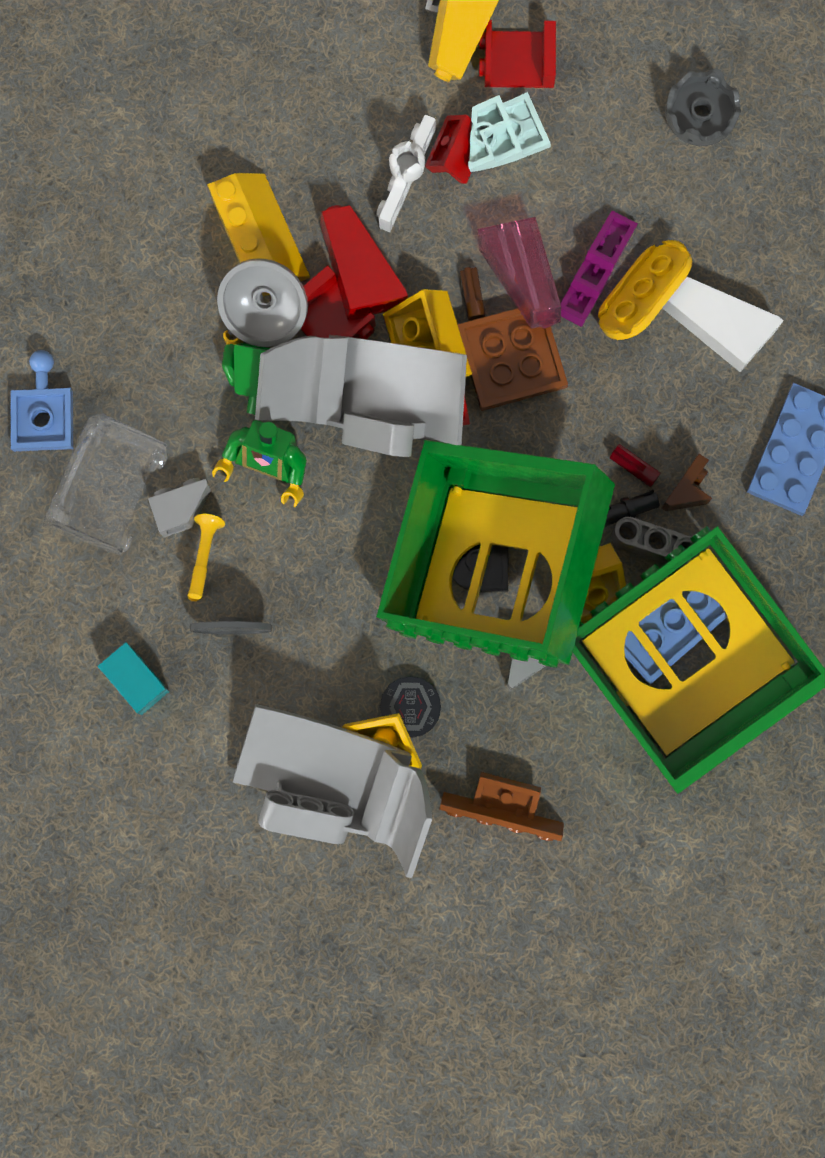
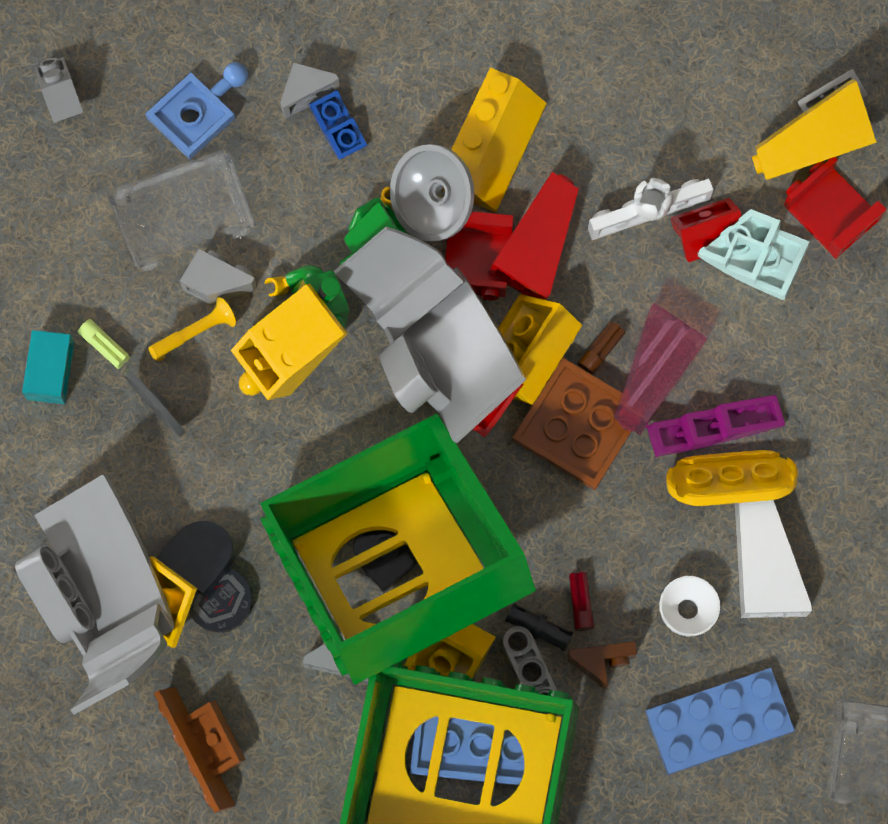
camera: 45 degrees right, 5 degrees down
(99, 321) = (306, 86): none -> light grey slope
(145, 326) = (337, 125): none -> blue slope
(151, 625) = (103, 343): none -> yellowish green piece
(277, 498) = (287, 345): none -> yellow slope
(367, 692) = (200, 554): none -> black tile
(709, 383) = (701, 594): none -> white piece

